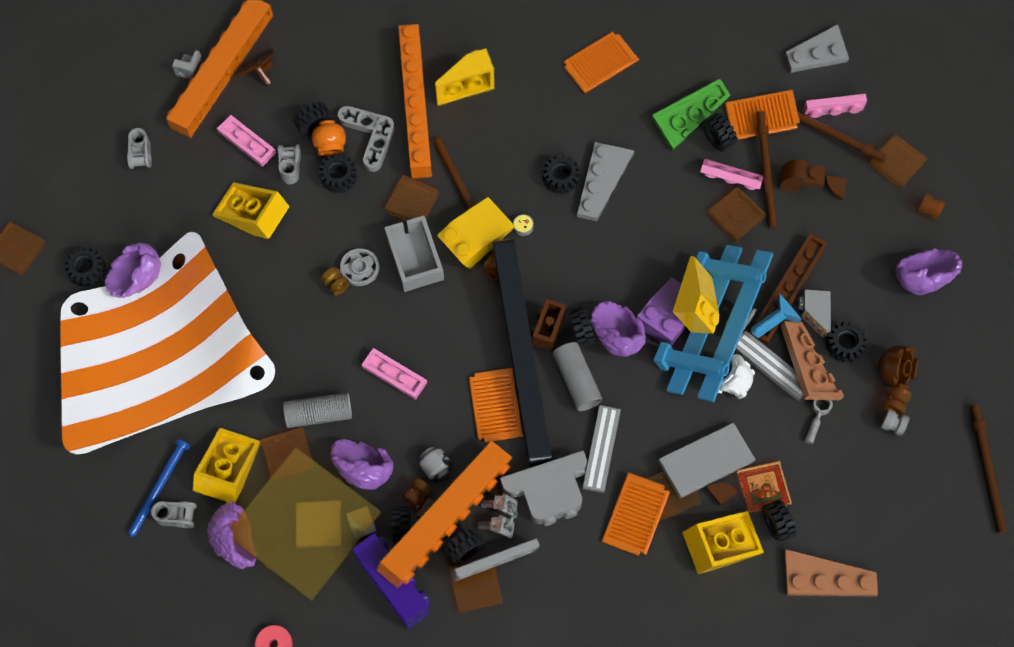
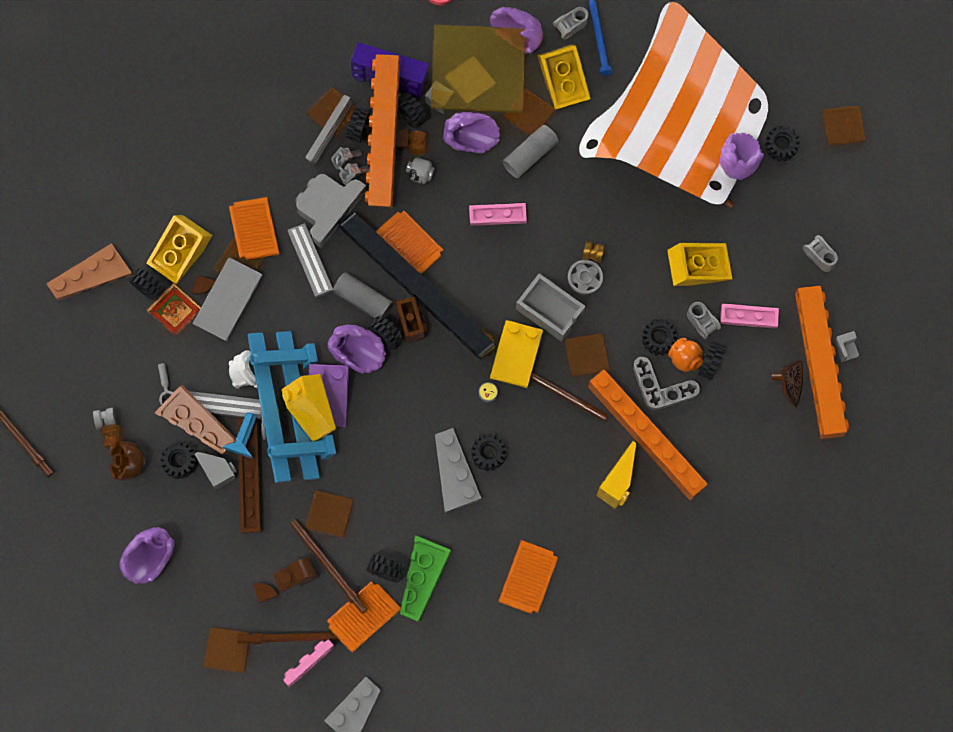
camera: 140 degrees right, 5 degrees up
(731, 174) = (353, 542): bright pink plate -> none
(931, 206) = (176, 622): clear orange wheel -> none

